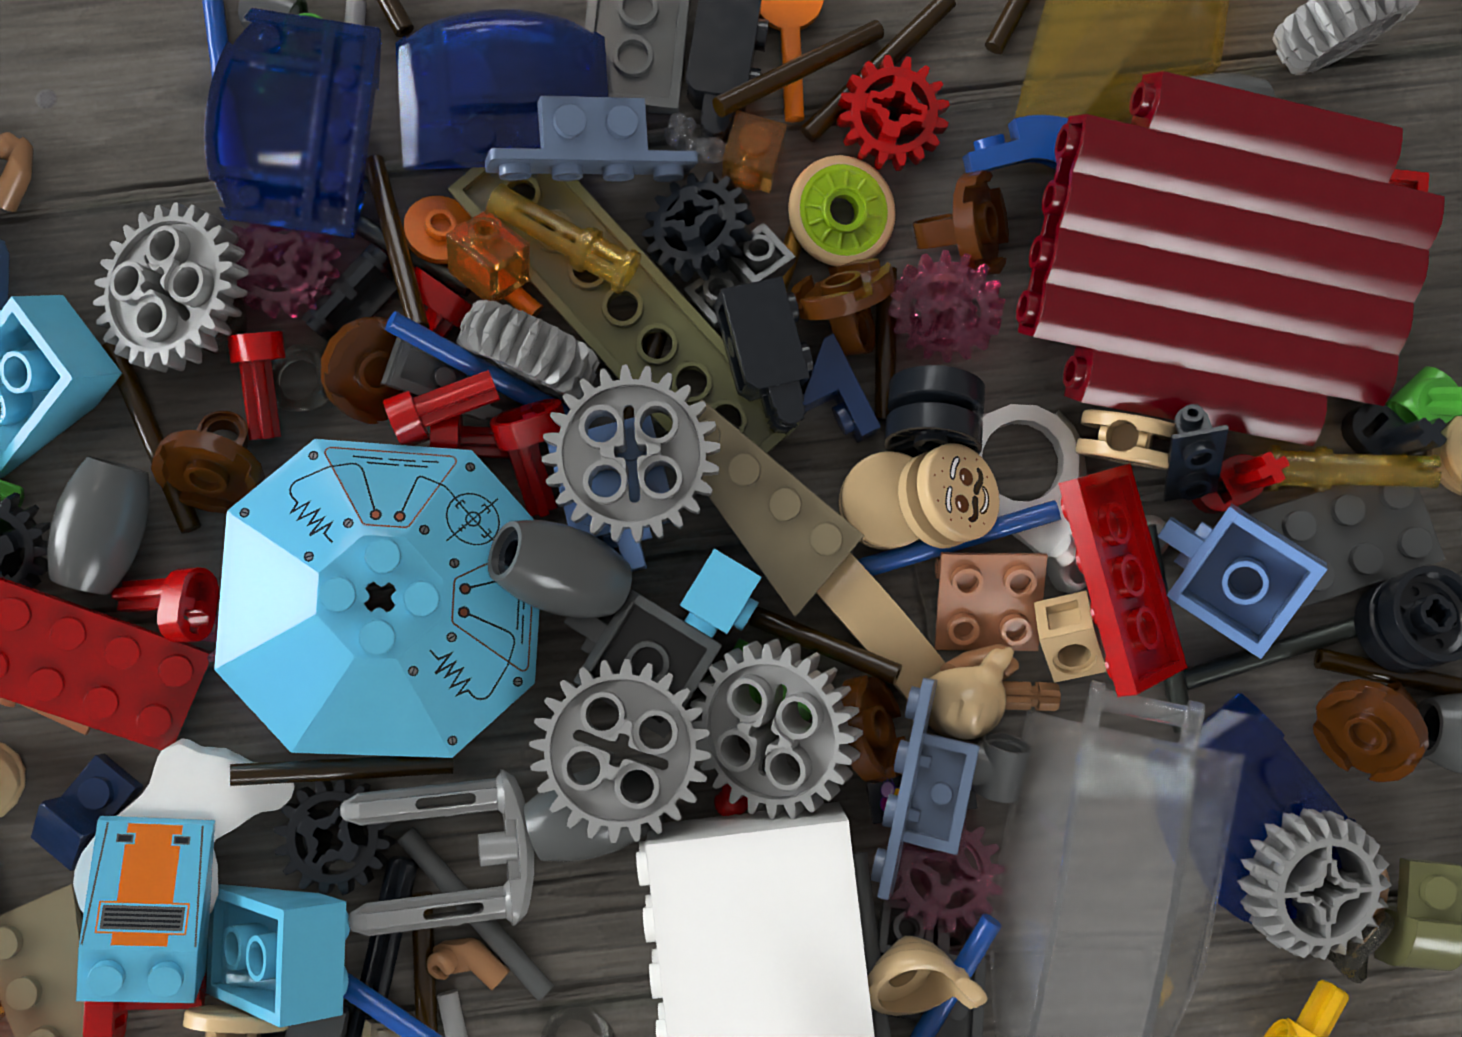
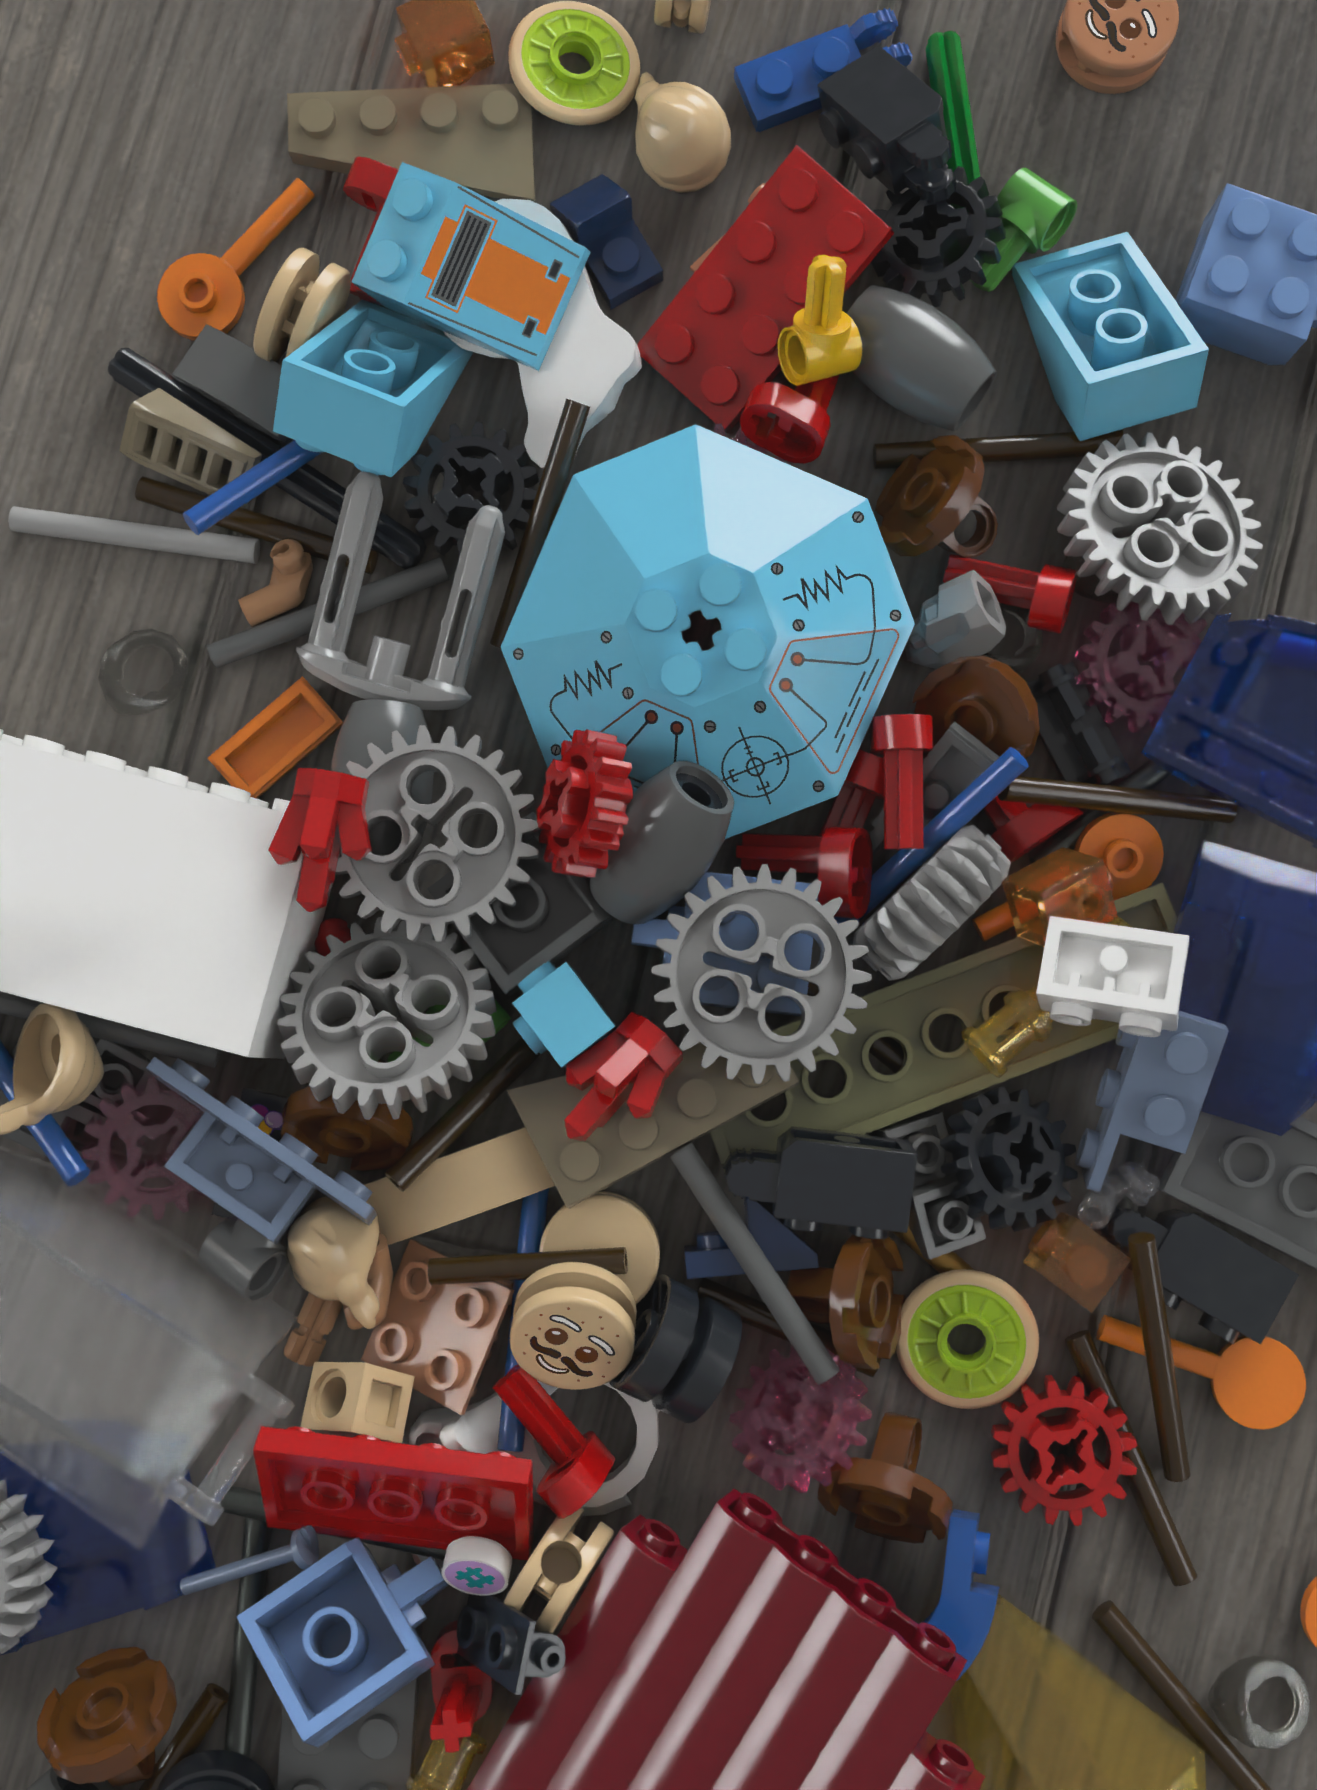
camera: 120 degrees right, 0 degrees up
(105, 600) = (822, 335): none -> yellow axle
(301, 412) = (956, 623): none -> light grey rock
(531, 191) = (1112, 975): none -> white bracket
(551, 637) = (585, 803): none -> red gear
(592, 912) = (276, 739): none -> orange tile
(640, 842) = (320, 817): none -> red rock
(732, 528) = (622, 1066): none -> red rock
(849, 380) = (755, 1264): none -> dark grey bar
(921, 555) = (519, 1265): none -> dark brown piece
(1044, 454) = (578, 1459): none -> red piece
(1150, 498) = (477, 1566): none -> tile
(1193, 633) = (302, 1550): none -> sand blue piece

